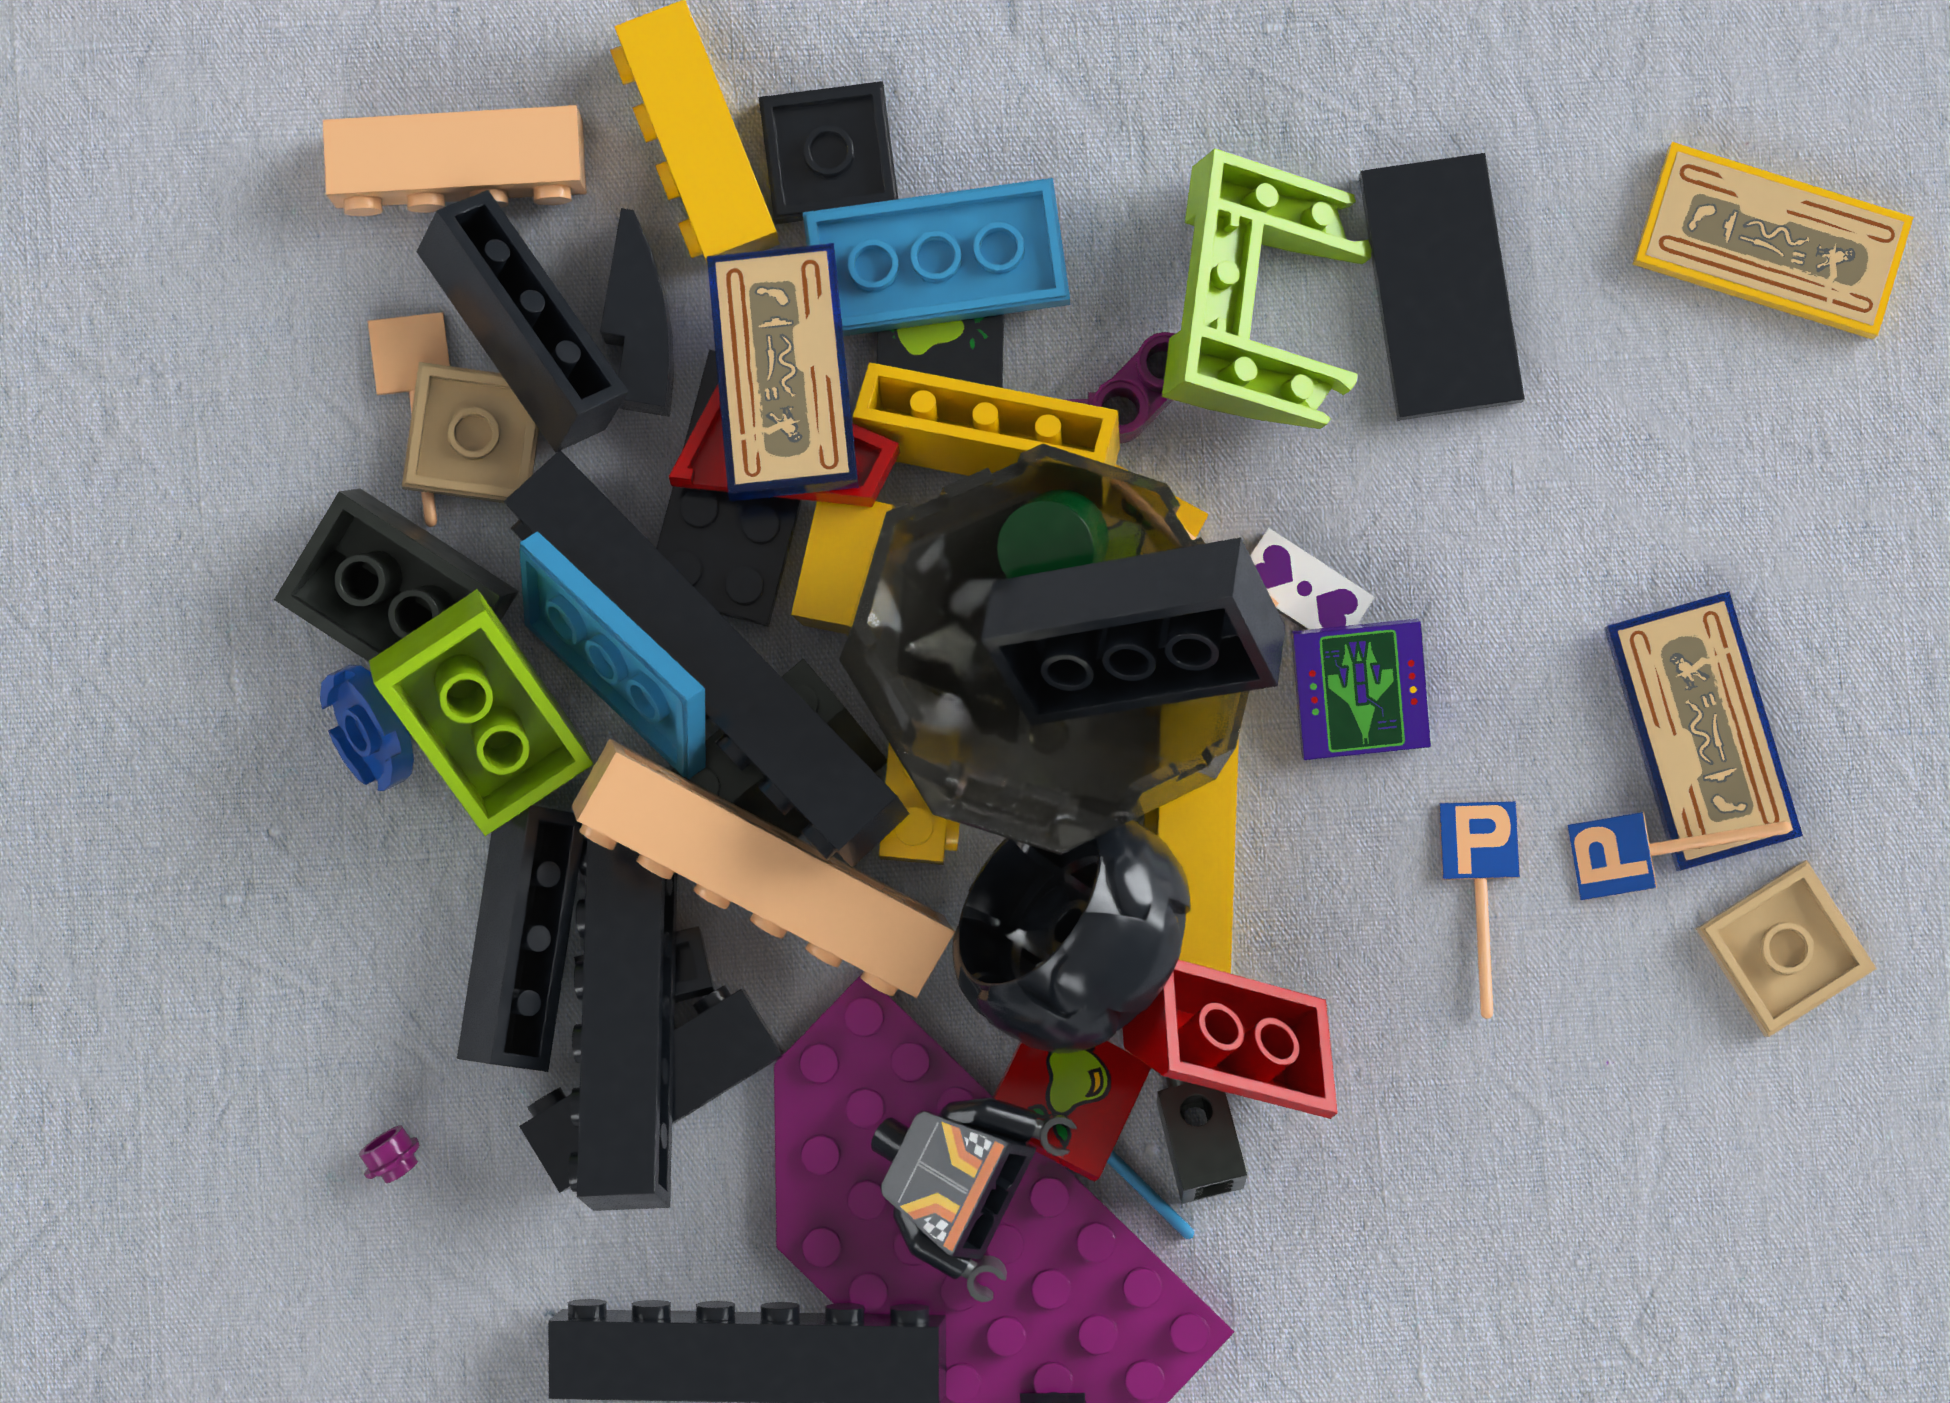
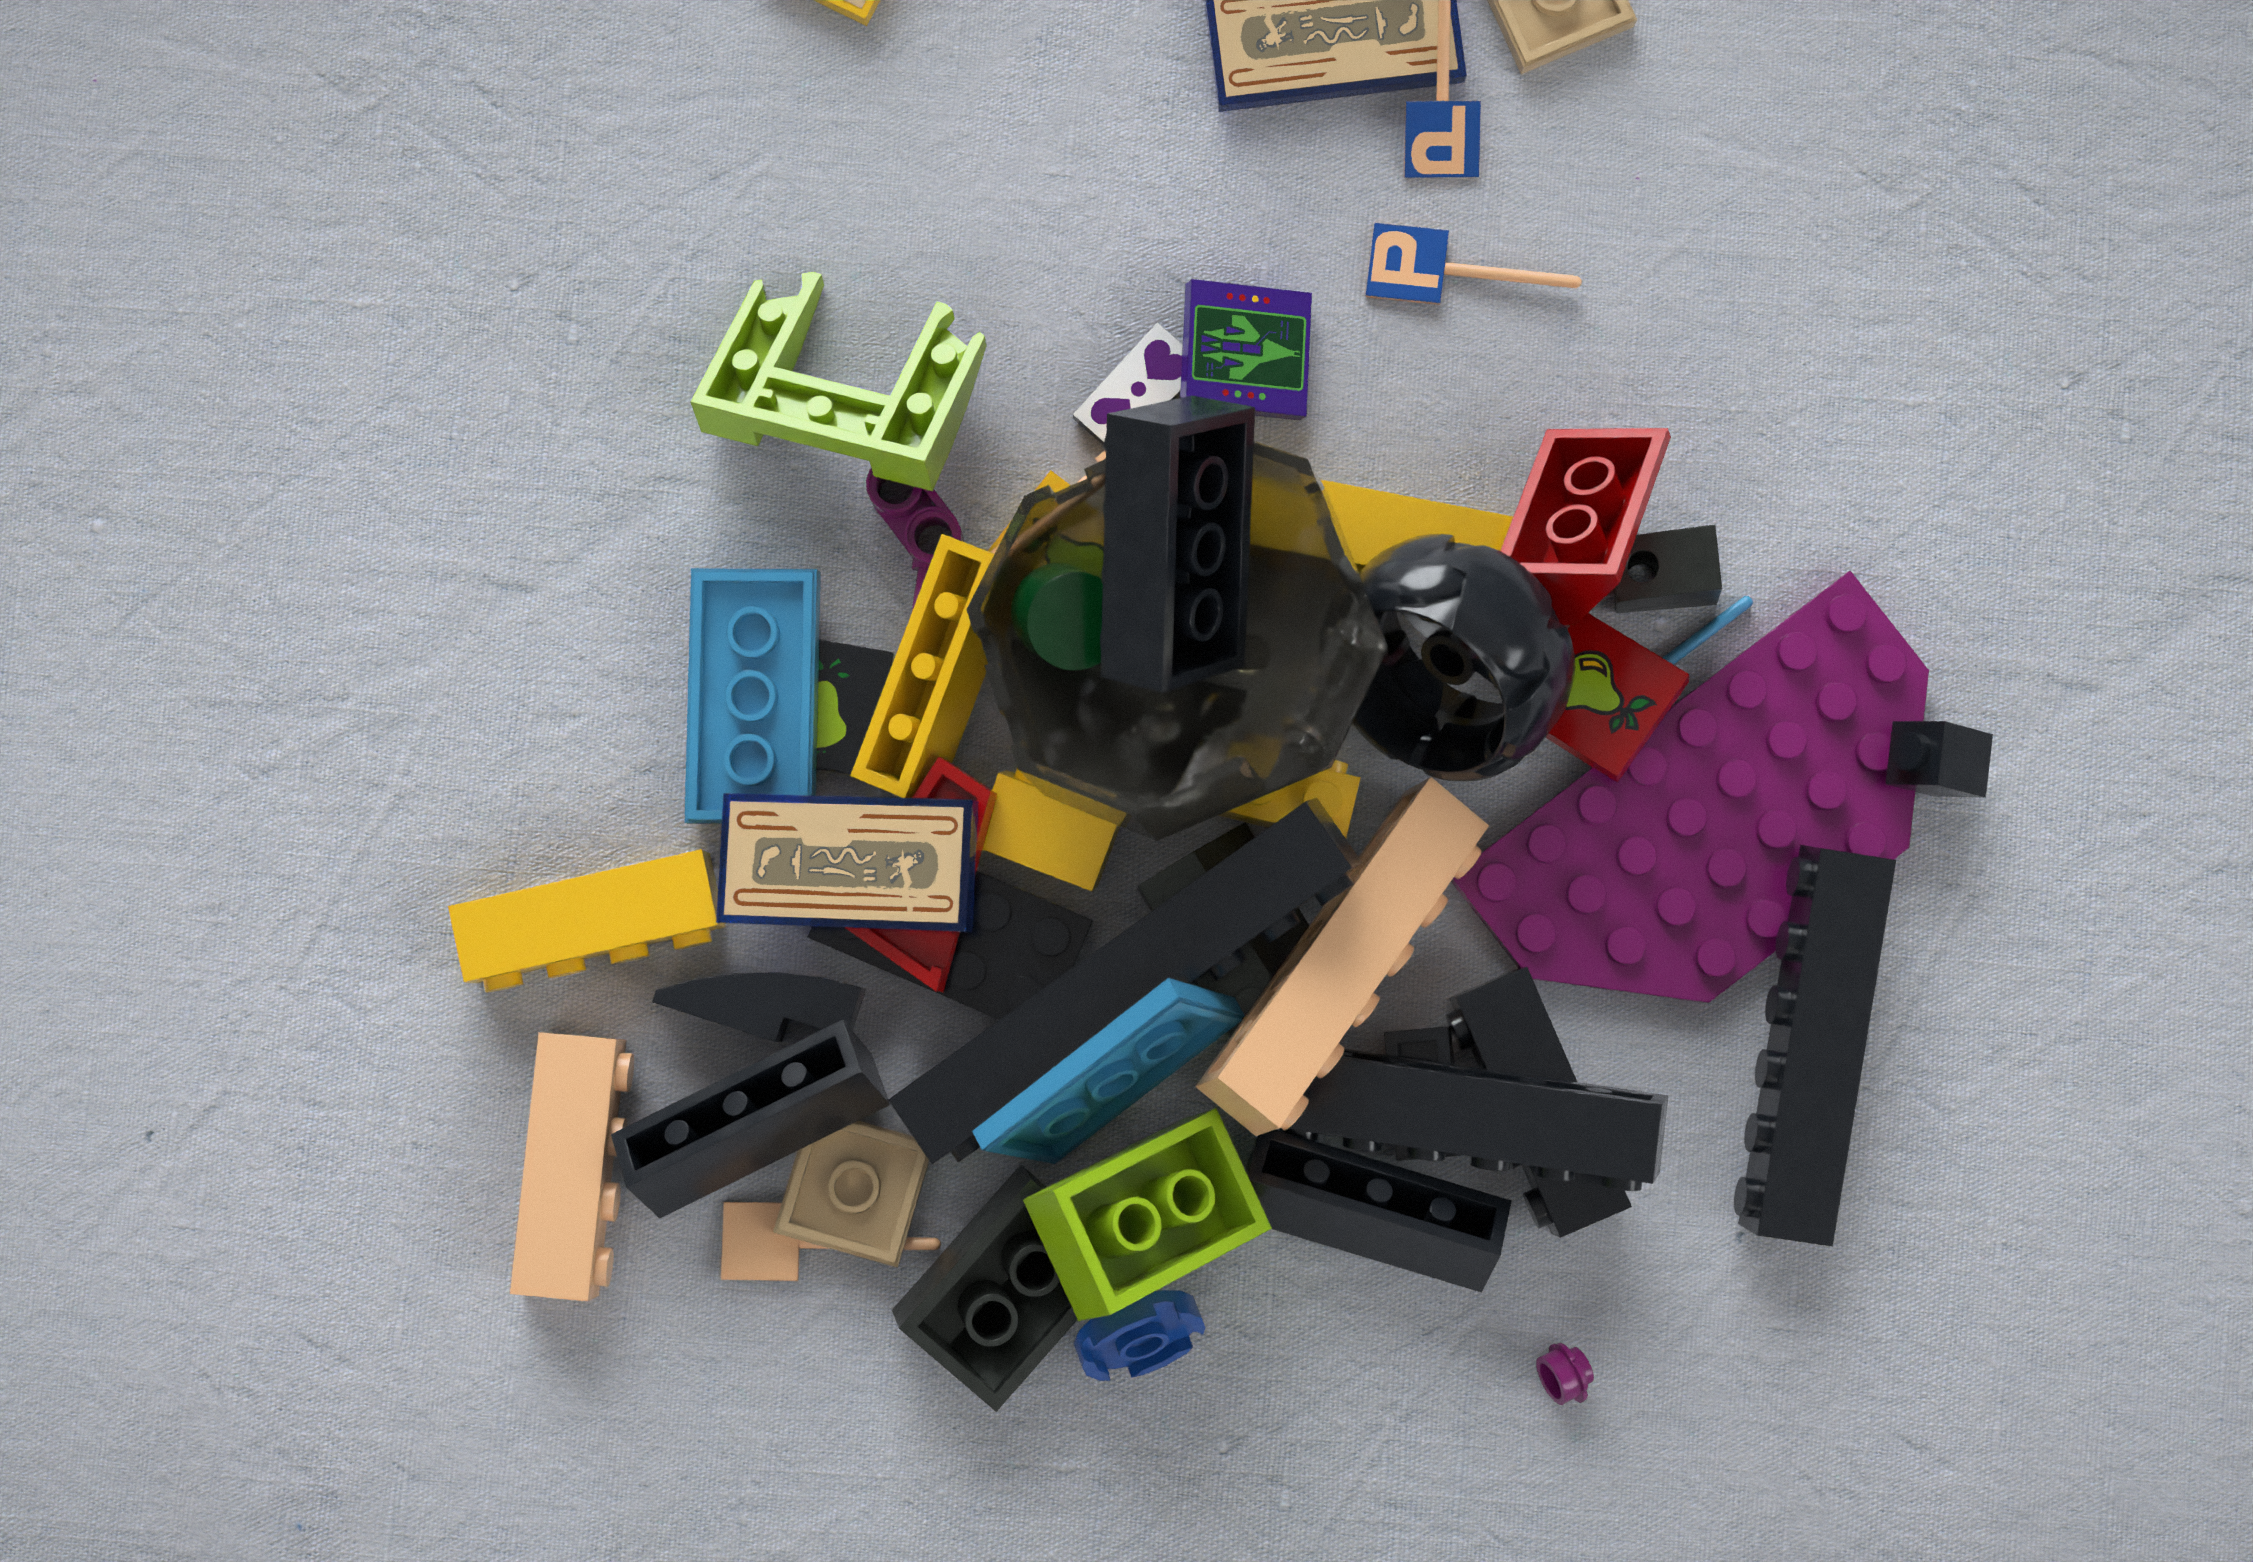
camera: 85 degrees left, 0 degrees up
(827, 149) = (623, 789): black tile -> none
(957, 1179) = (1676, 808): black torso -> none
(1441, 286) = (859, 210): black tile -> none

